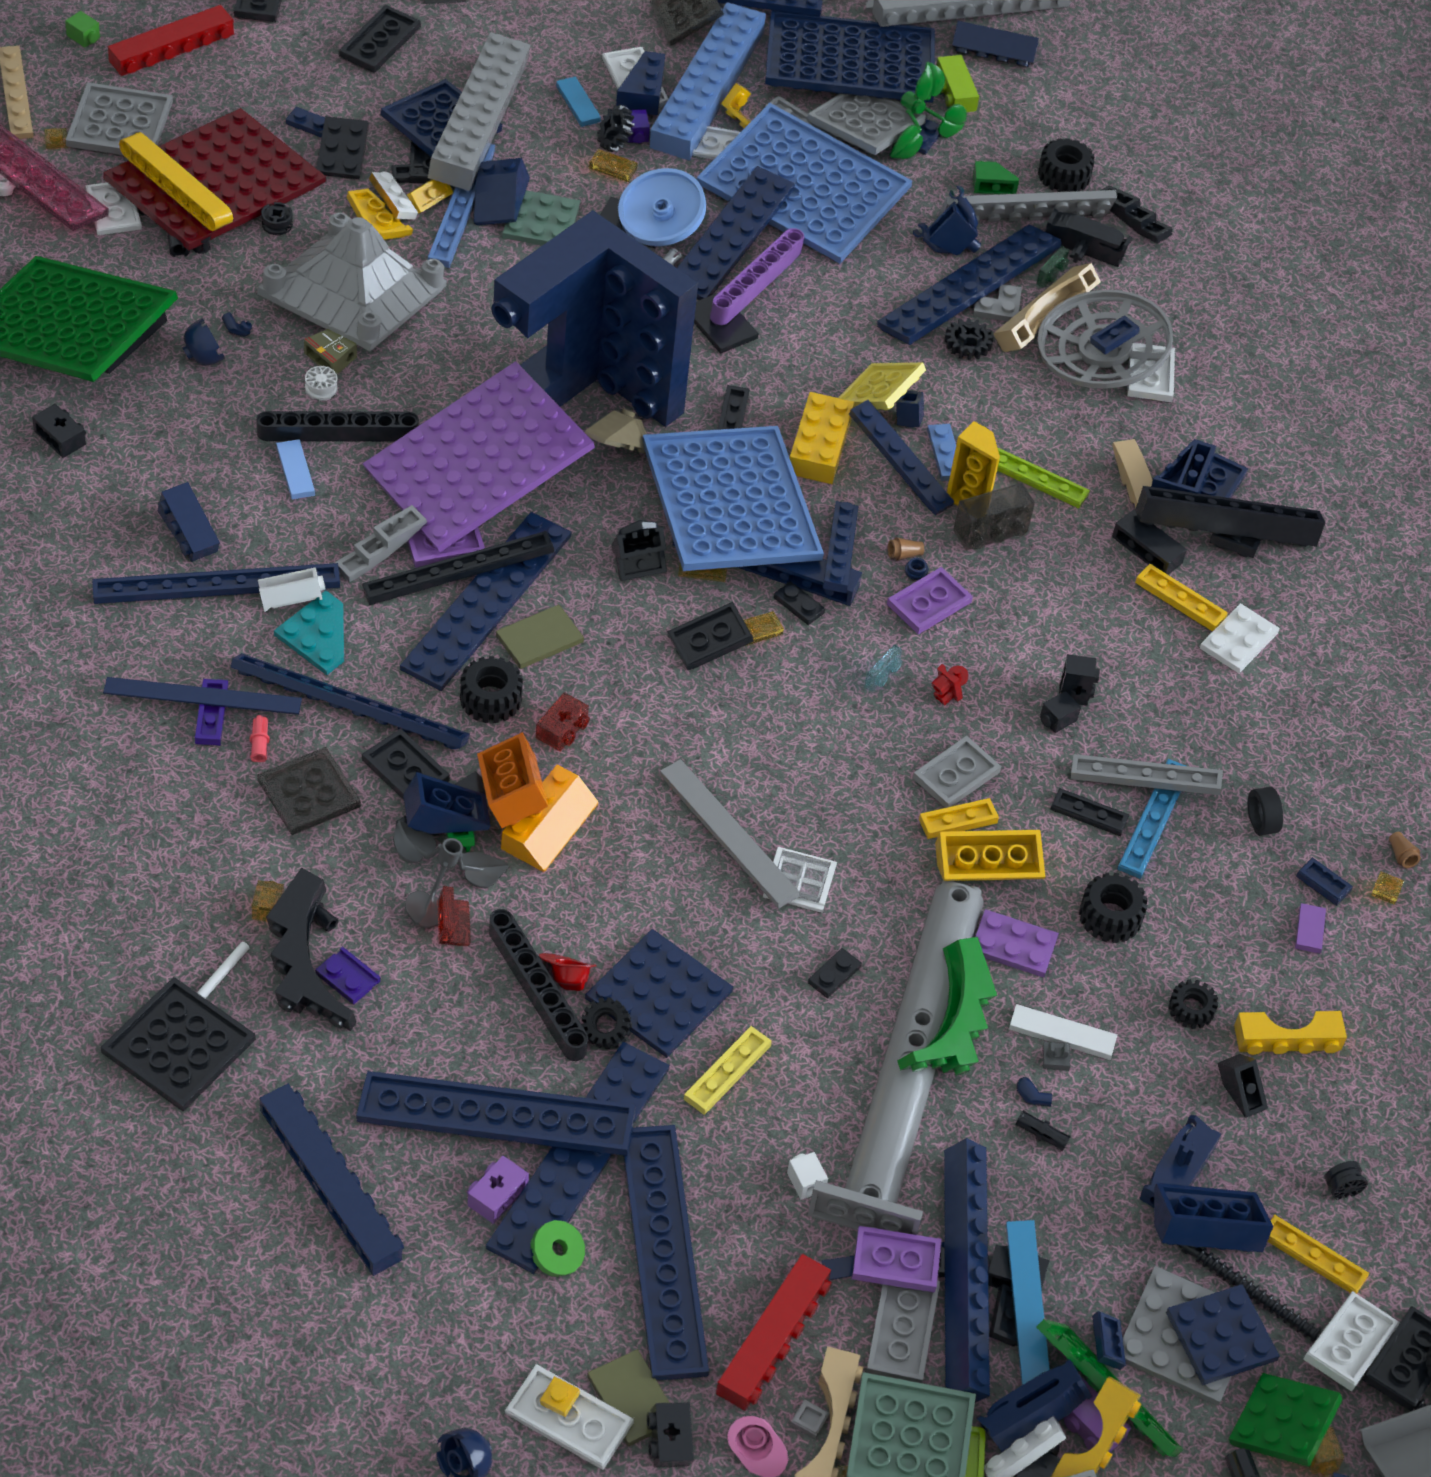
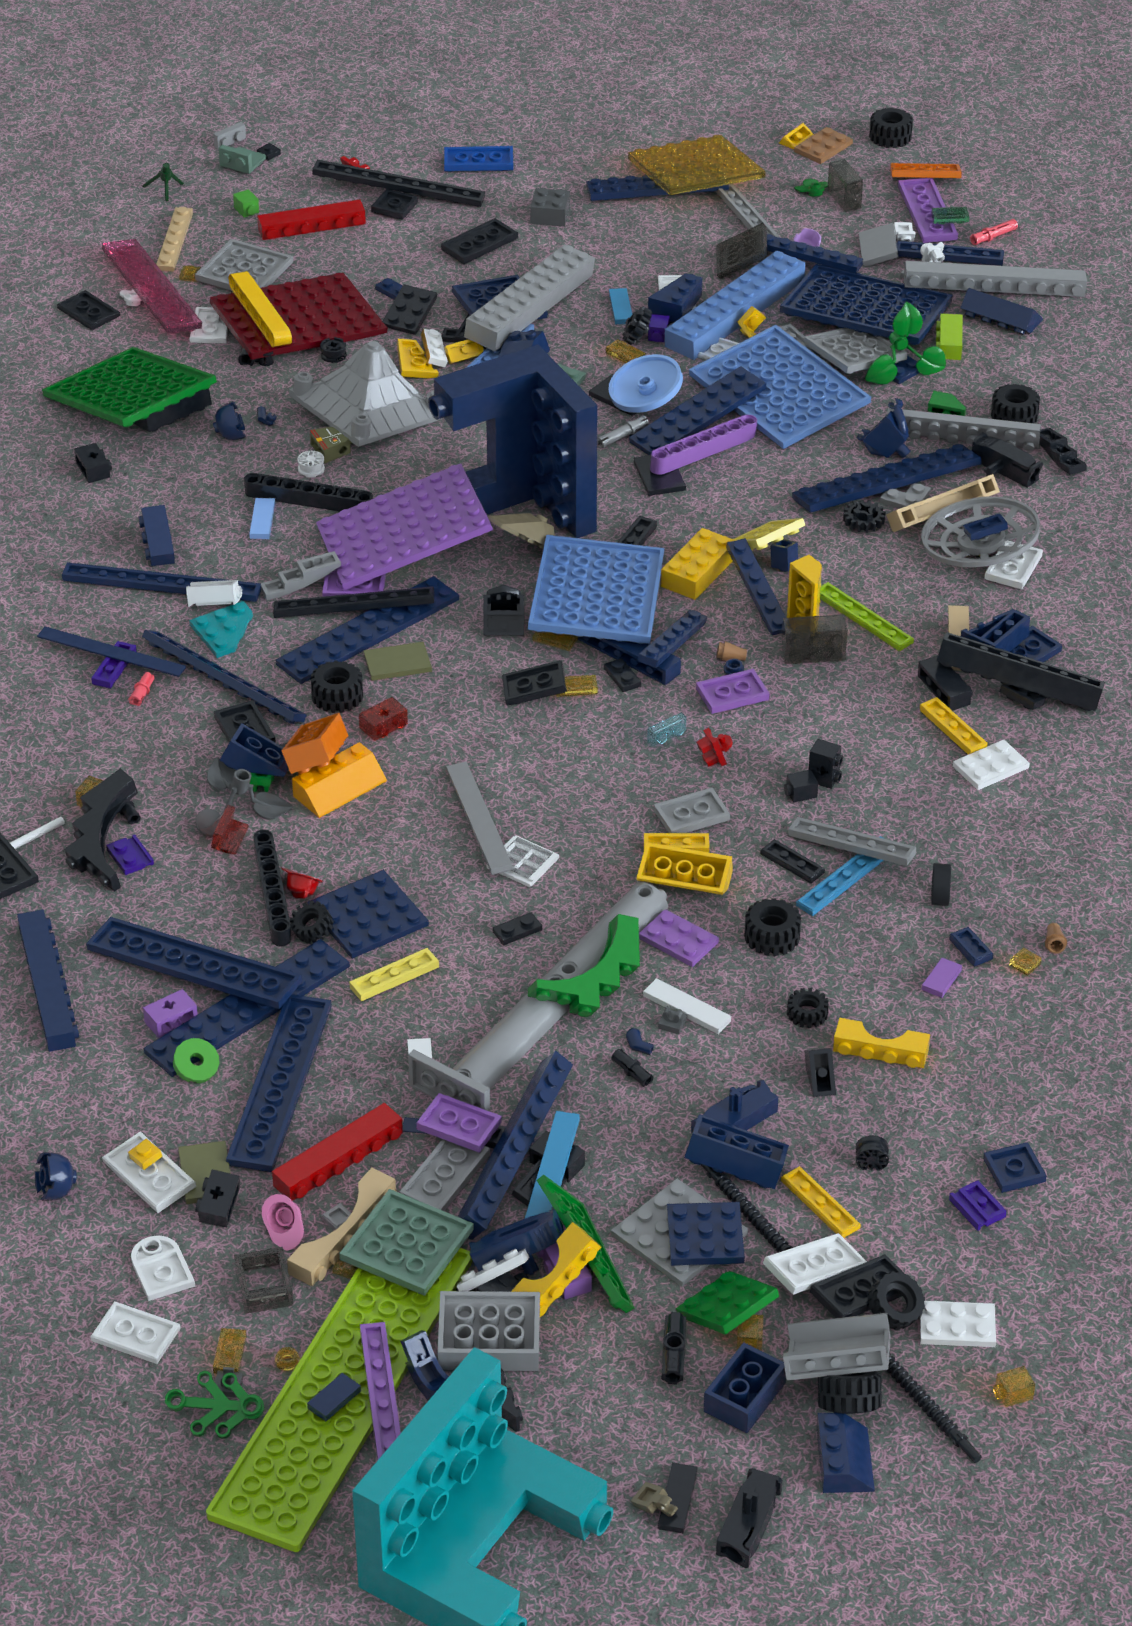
camera: 25 degrees right, 10 degrees down
(308, 790) = (161, 728): clear smoke plate -> none
(1050, 269) = (965, 475): clear green plate -> none
(1109, 1340) = (609, 1218): dark blue plate -> none

